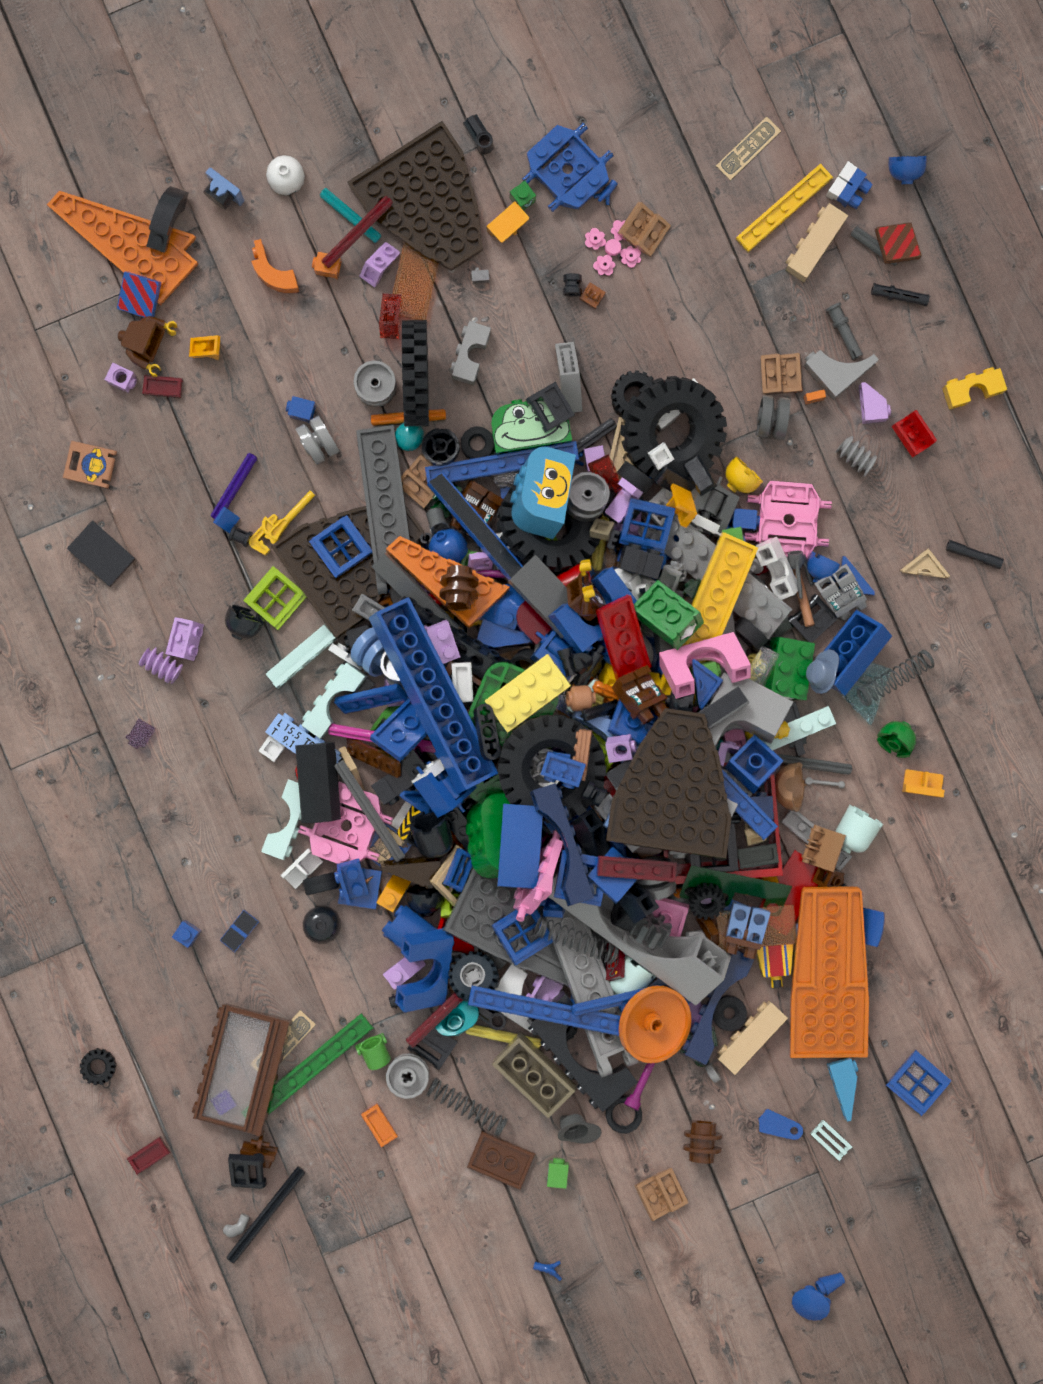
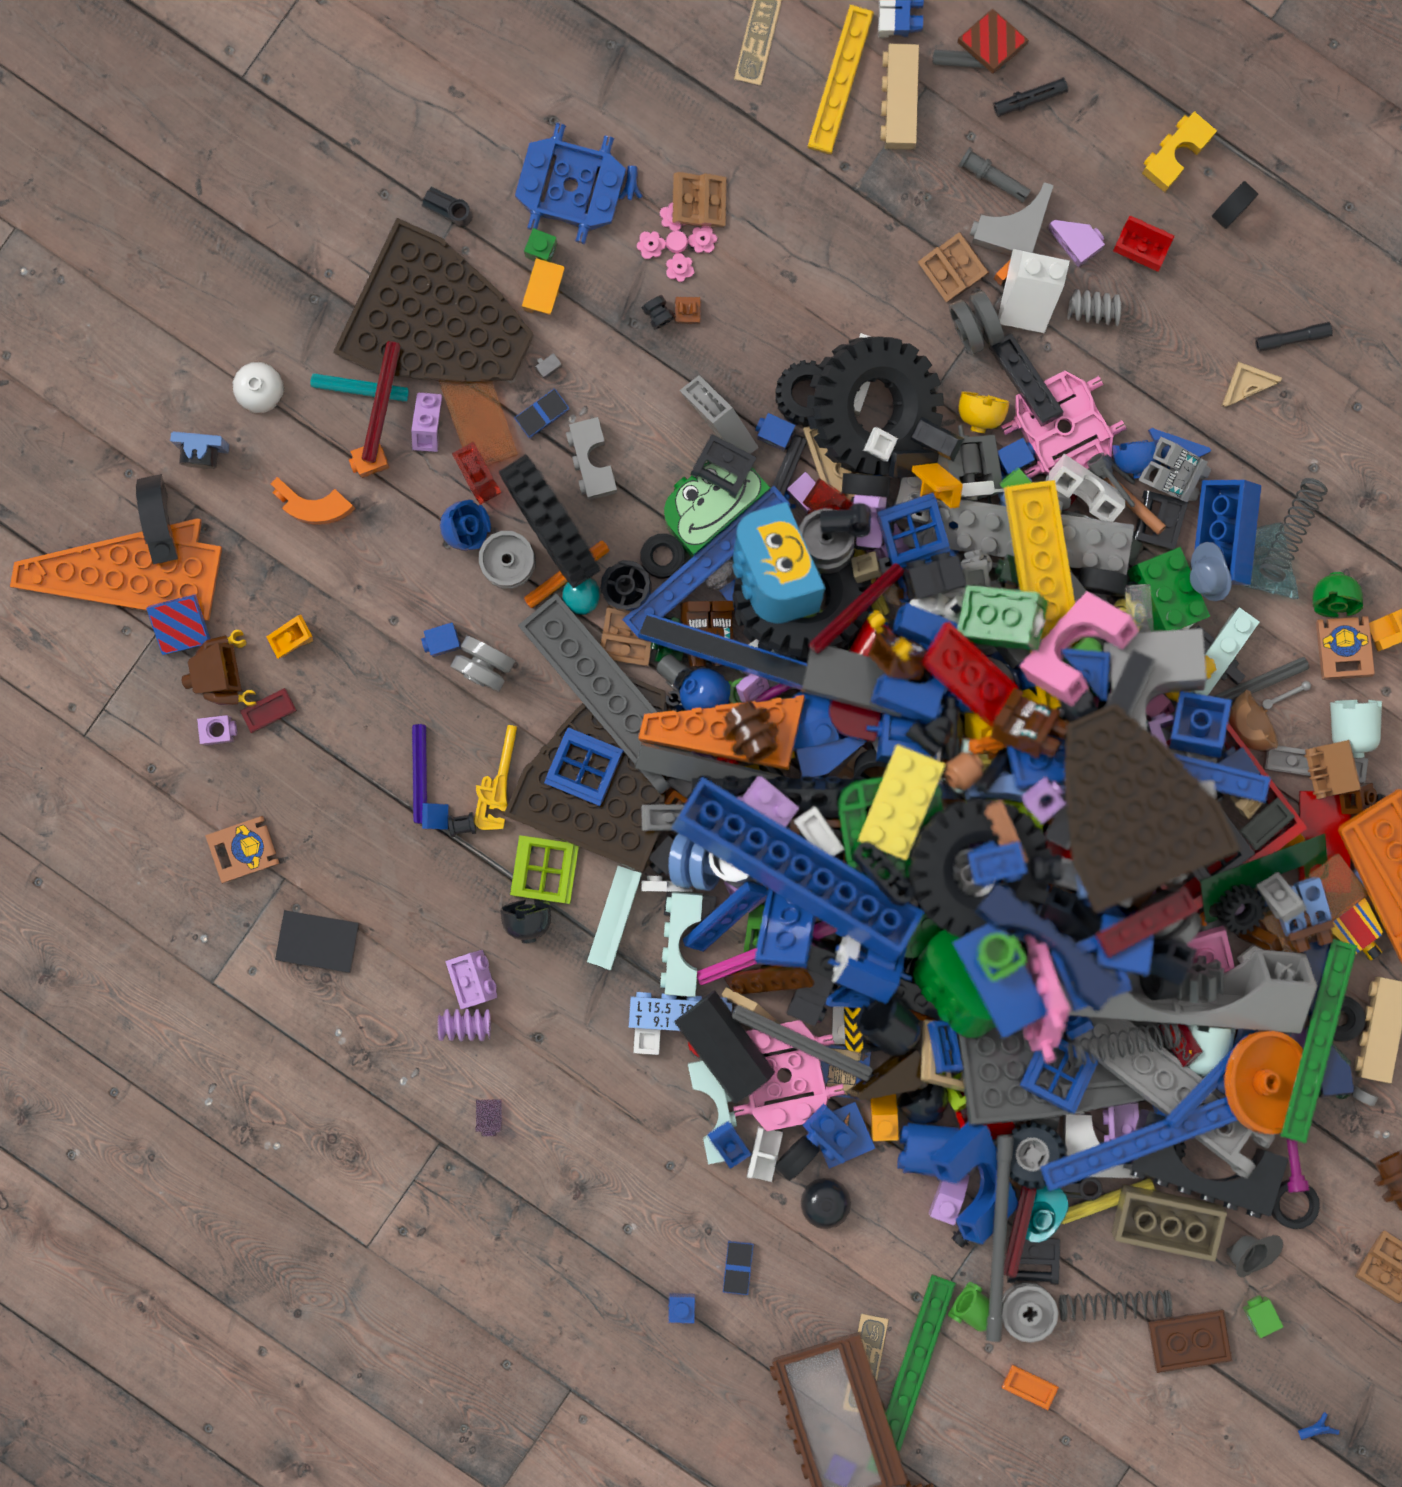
camera: 25 degrees left, 0 degrees up
(281, 846) = (729, 1144): none -> blue slope
(362, 344) = (465, 525): none -> blue cylinder
(453, 964) = (1004, 1158): none -> dark grey piece
(457, 304) = (541, 413): none -> black tile
(527, 826) = (998, 951): none -> bright green piece
(577, 551) = (854, 610): none -> dark red axle
(599, 408) = (774, 431): none -> blue brick
(611, 493) = (855, 520): none -> black piece
(704, 1018) = (1318, 1041): none -> green tile
(736, 908) = (1281, 898): none -> light grey slope
(783, 475) = (1027, 380): none -> black tile
(822, 418) = (1032, 290): none -> white slope
(883, 772) = (1345, 642): none -> nougat container
(989, 444) = (1235, 204): none -> black tyre

